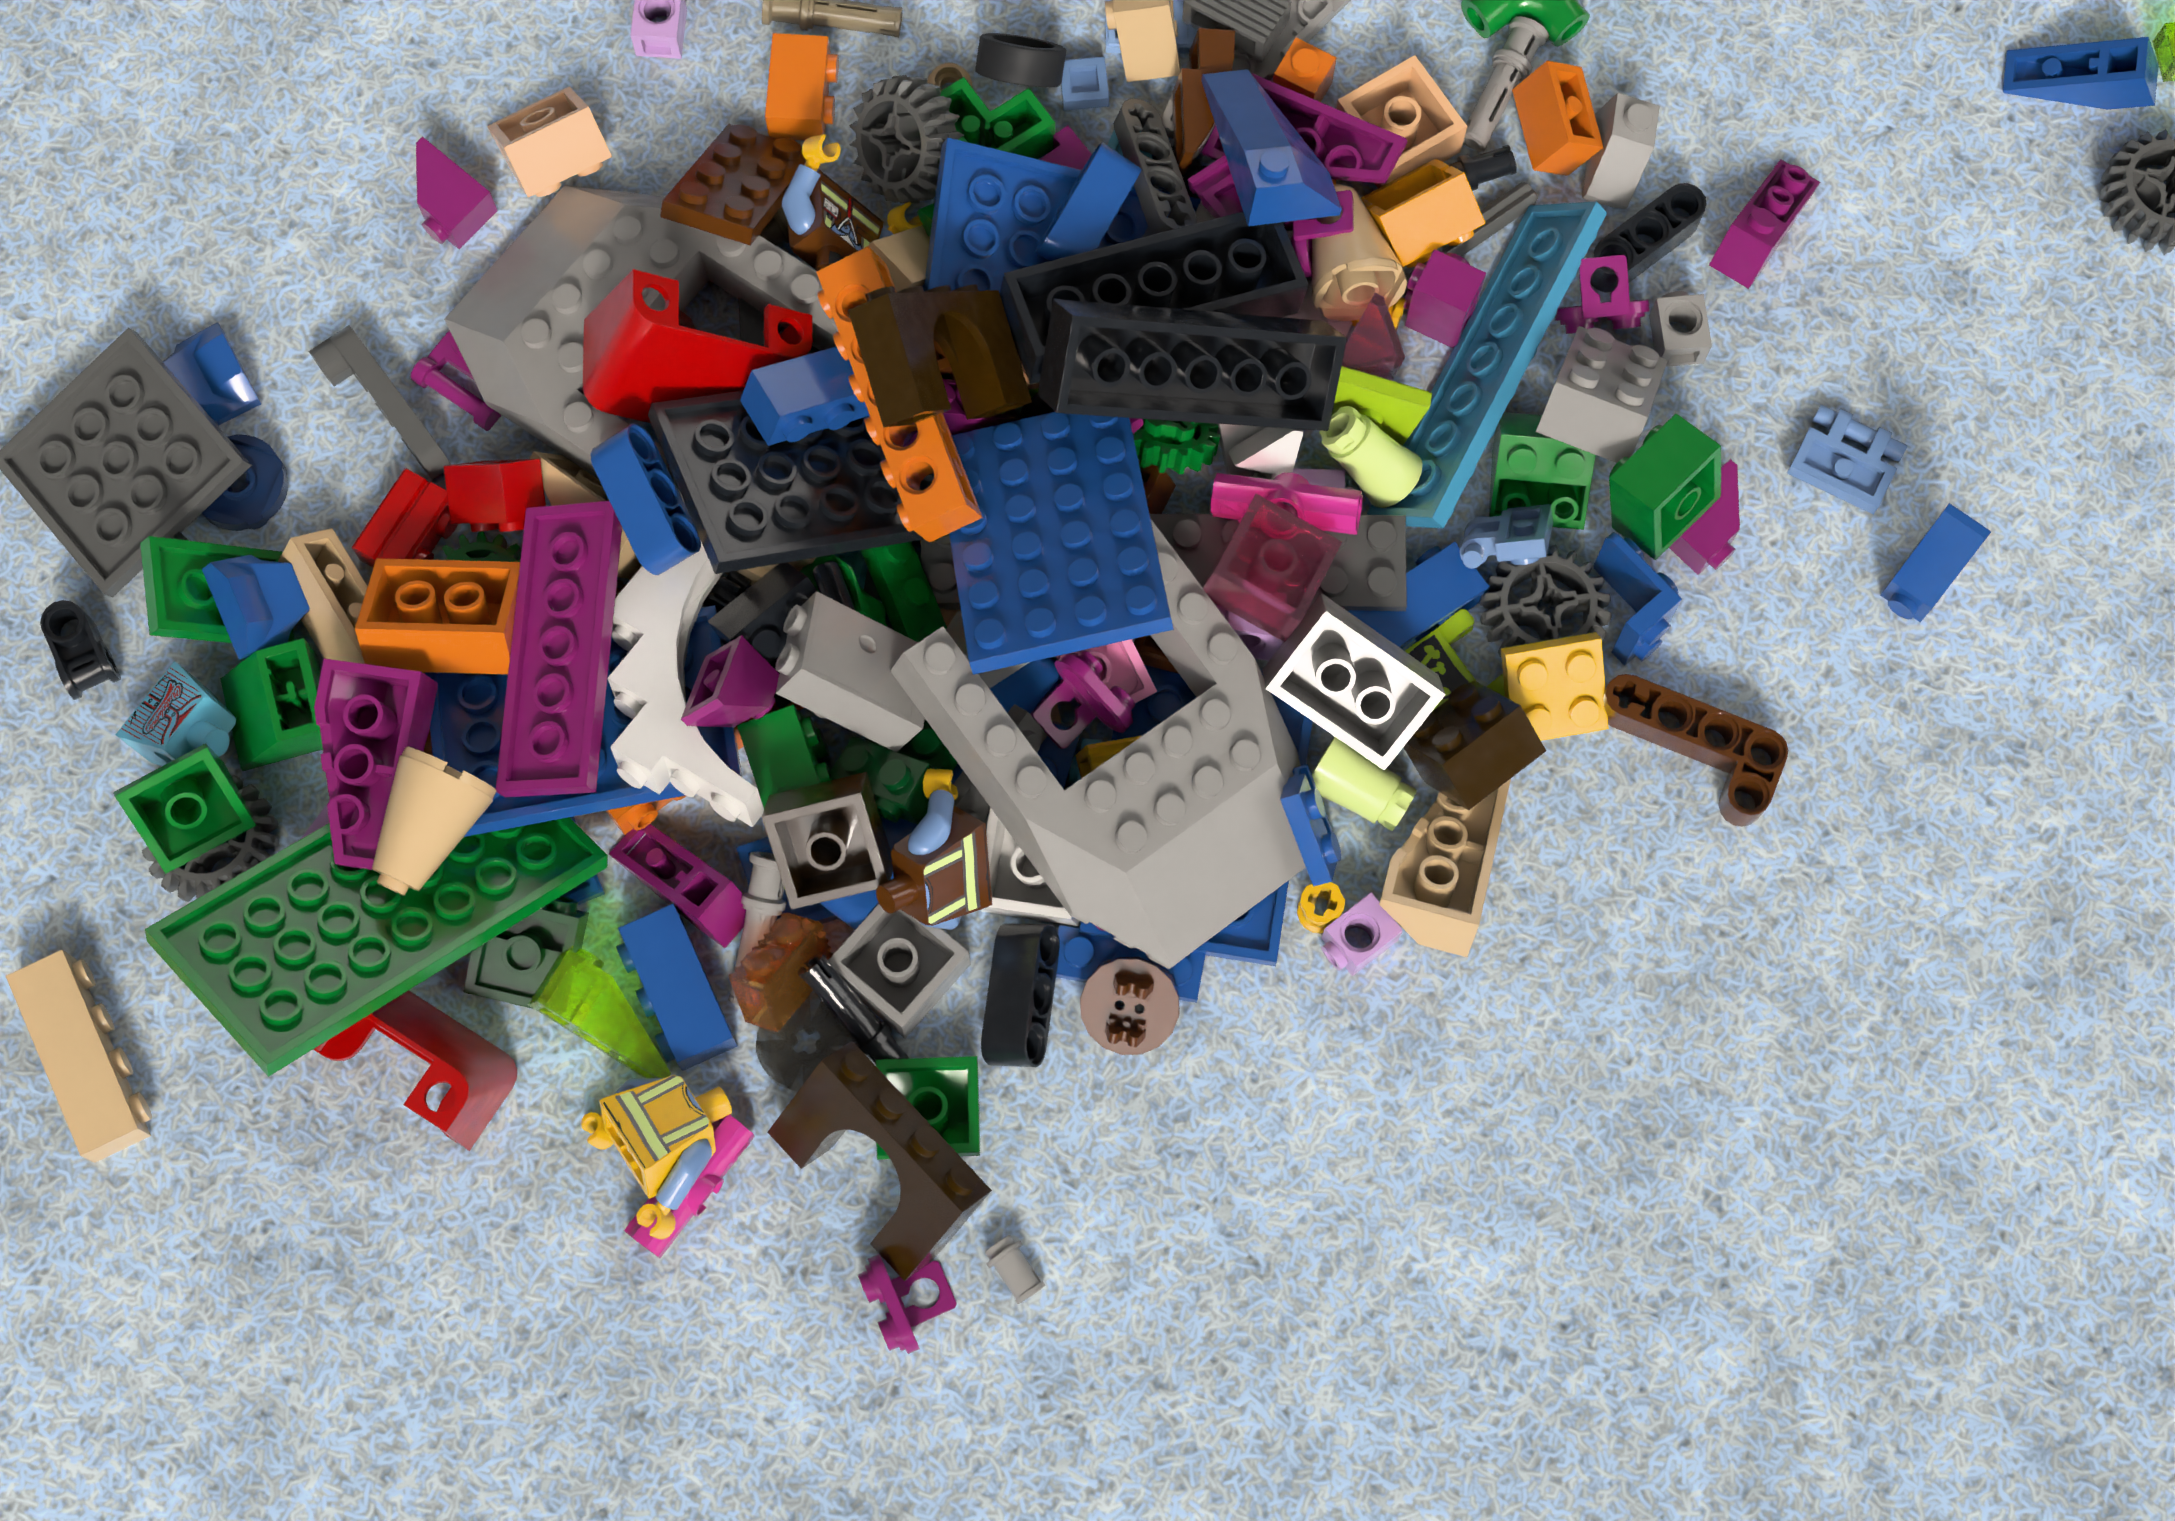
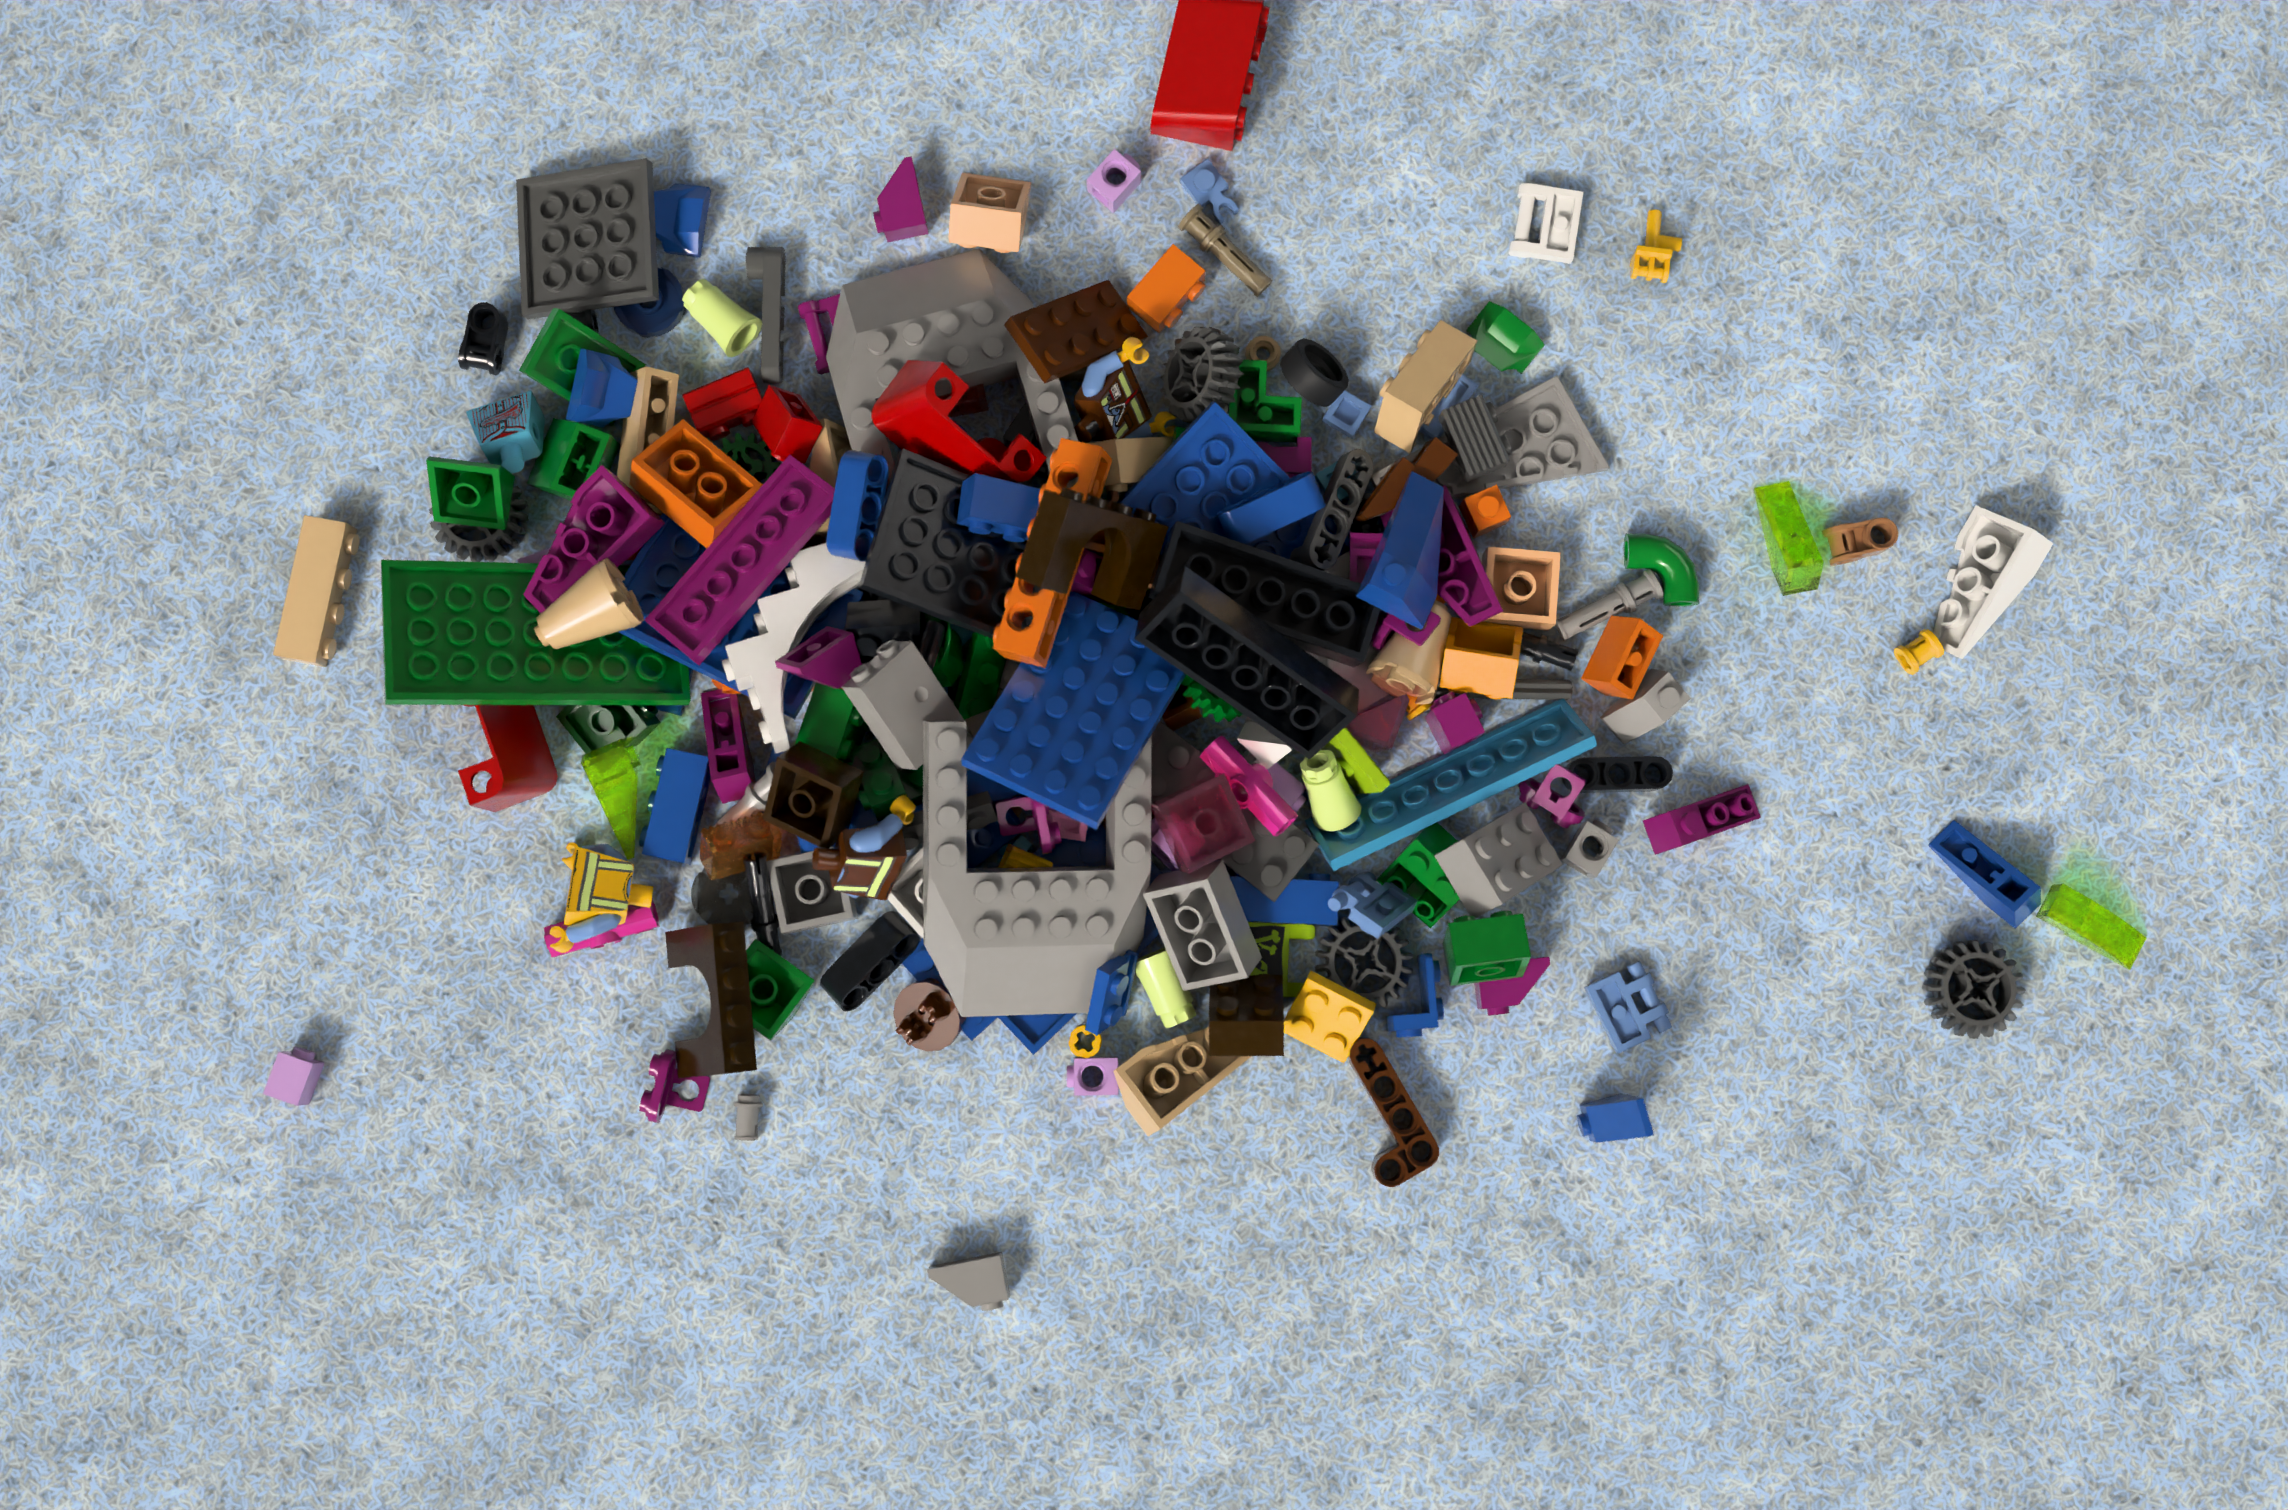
camera: 40 degrees right, 10 degrees up
(334, 441) = (722, 317): none -> yellowish green plant
(1406, 1251) = (974, 1280): none -> light grey slope

